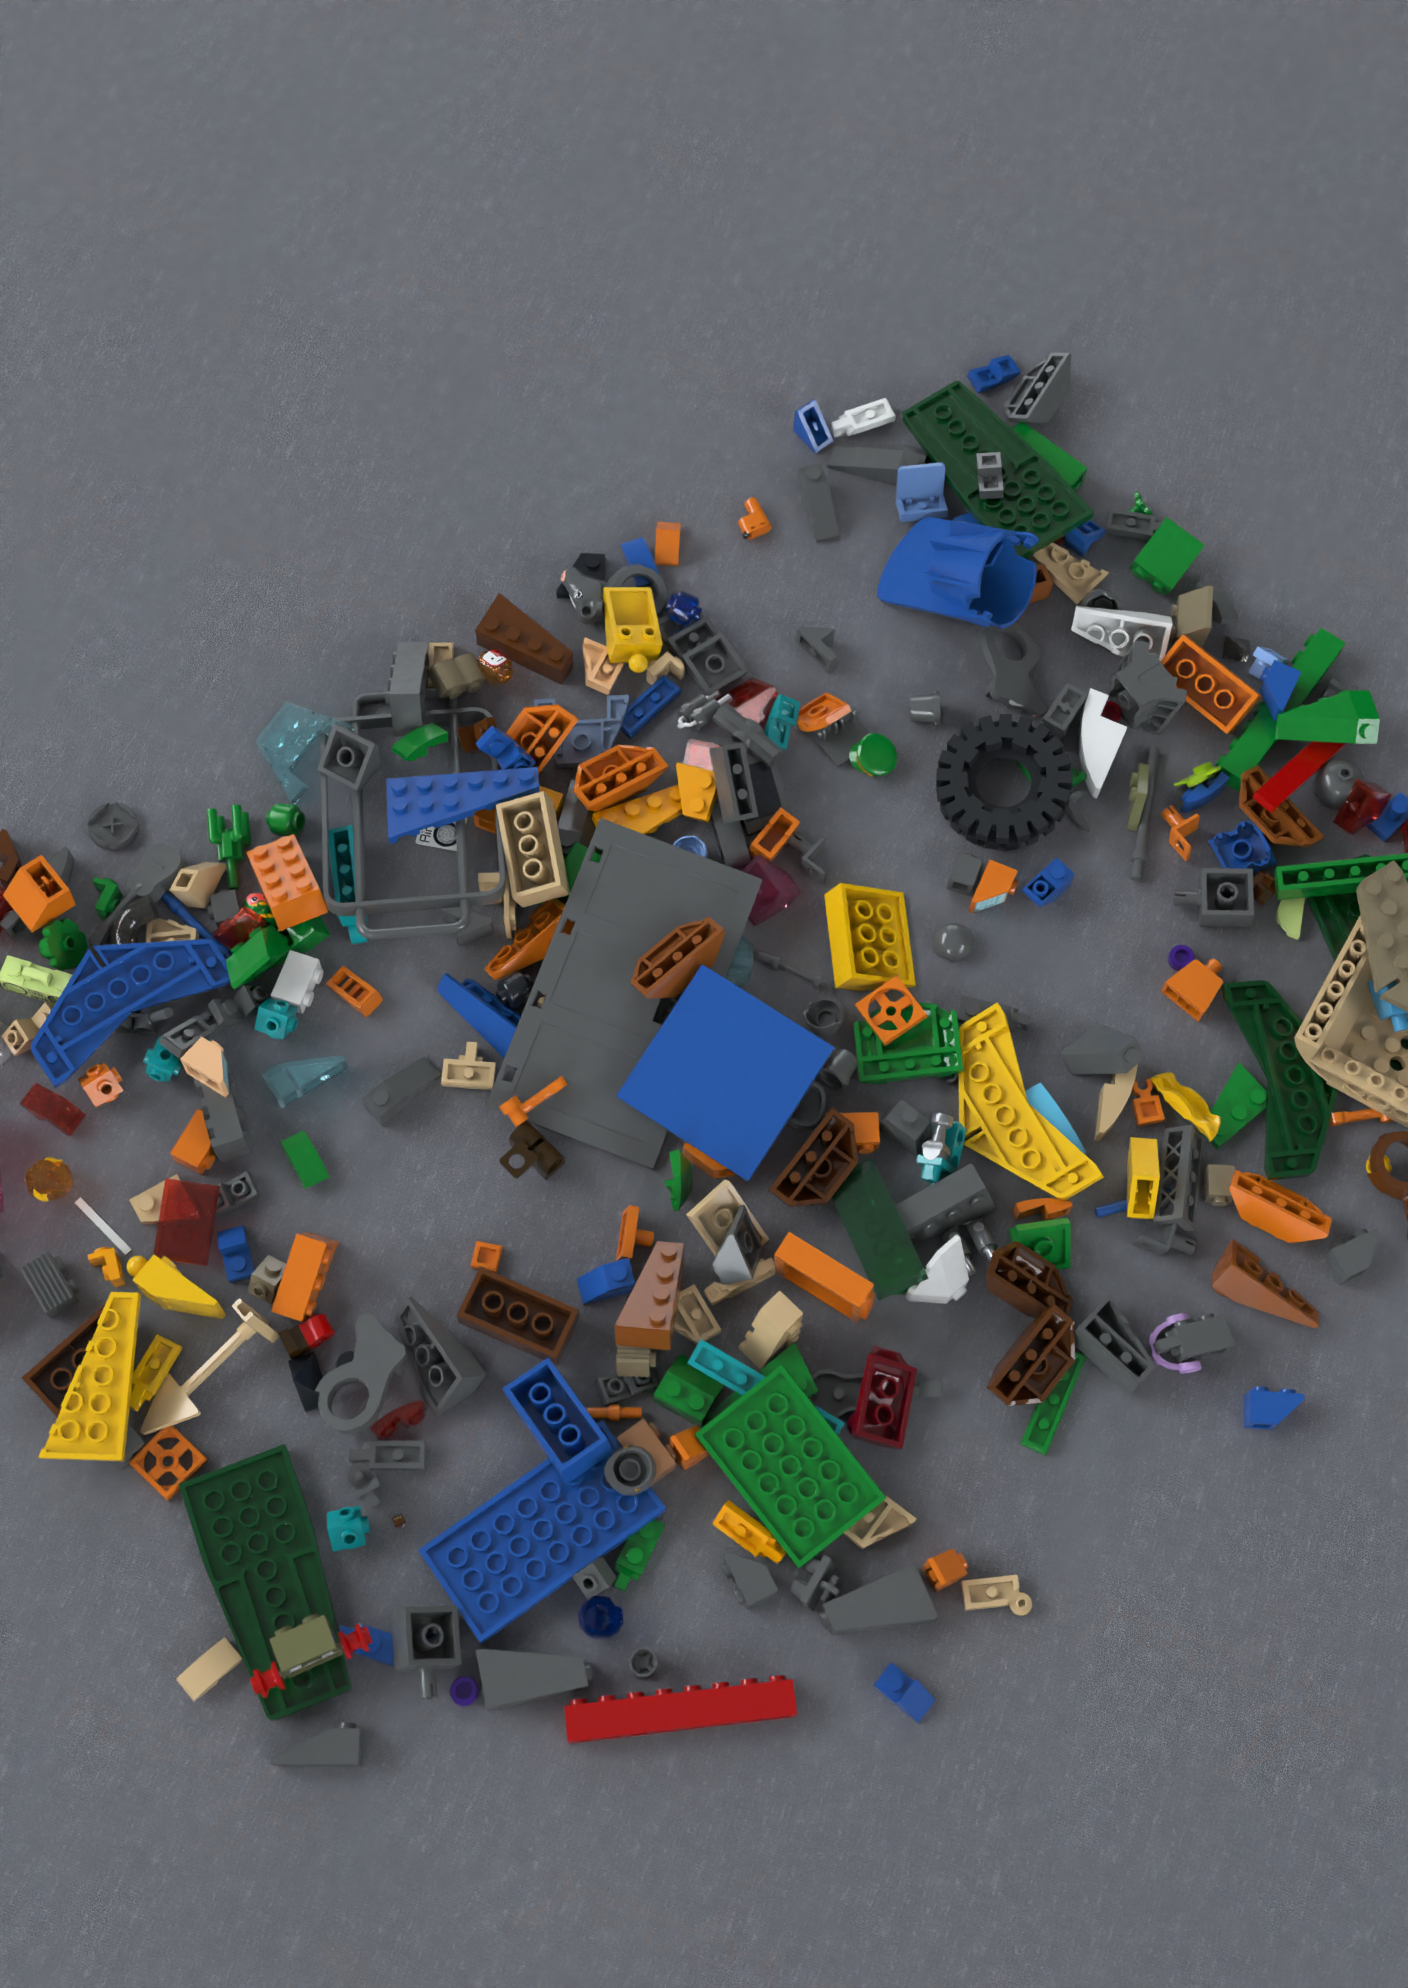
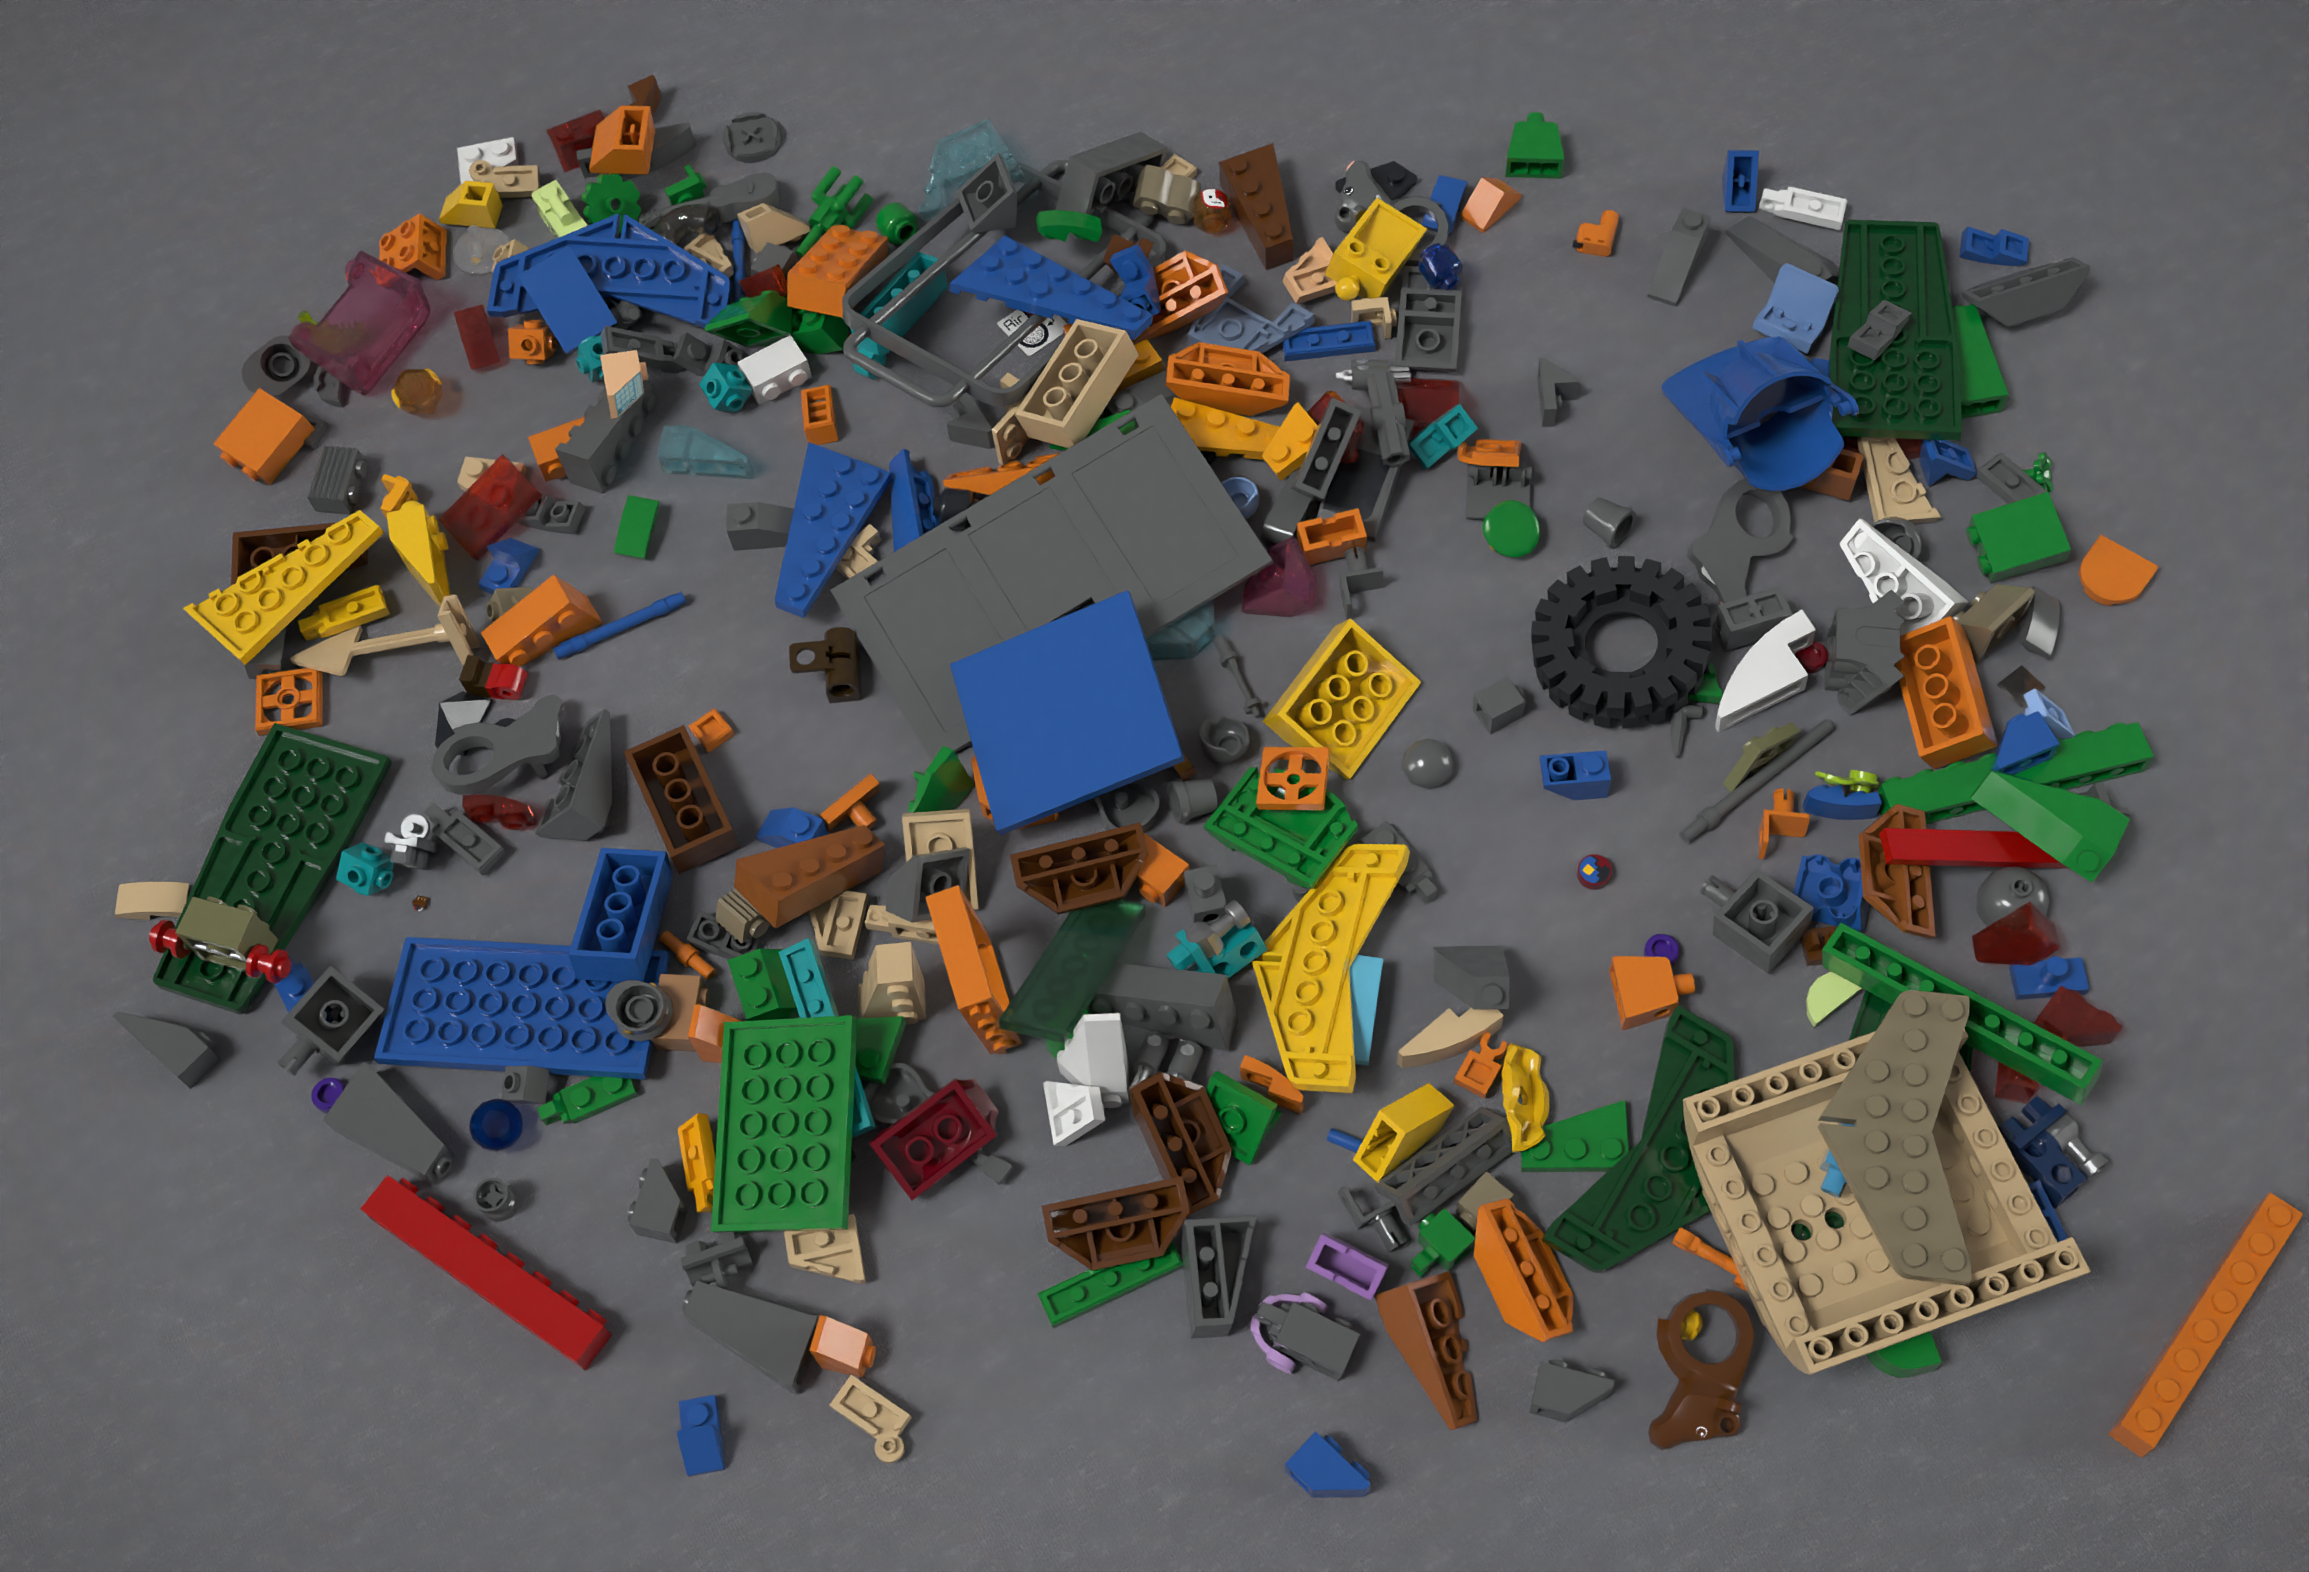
camera: 50 degrees right, 5 degrees down
(103, 1226) = (428, 466): white sticker -> none
(109, 1035) = (567, 298): none -> blue tile
(341, 1263) = (582, 642): none -> blue piece
(434, 1054) = (828, 513): none -> blue wing
(517, 1111) = (850, 613): orange brick -> none
(665, 486) = (1535, 149): none -> green torso
(677, 958) = (1105, 573): dark orange wedge -> none
(944, 1316) = (1072, 1110): none -> white wing
(994, 886) = (1516, 738): orange slope -> none
(1104, 937) = (1594, 871): none -> tile
(1181, 1281) = (1347, 1265): none -> medium lavender brick
(1217, 1224) = (1443, 1242): none -> green brick
(1228, 542) = (2114, 573): none -> orange tile

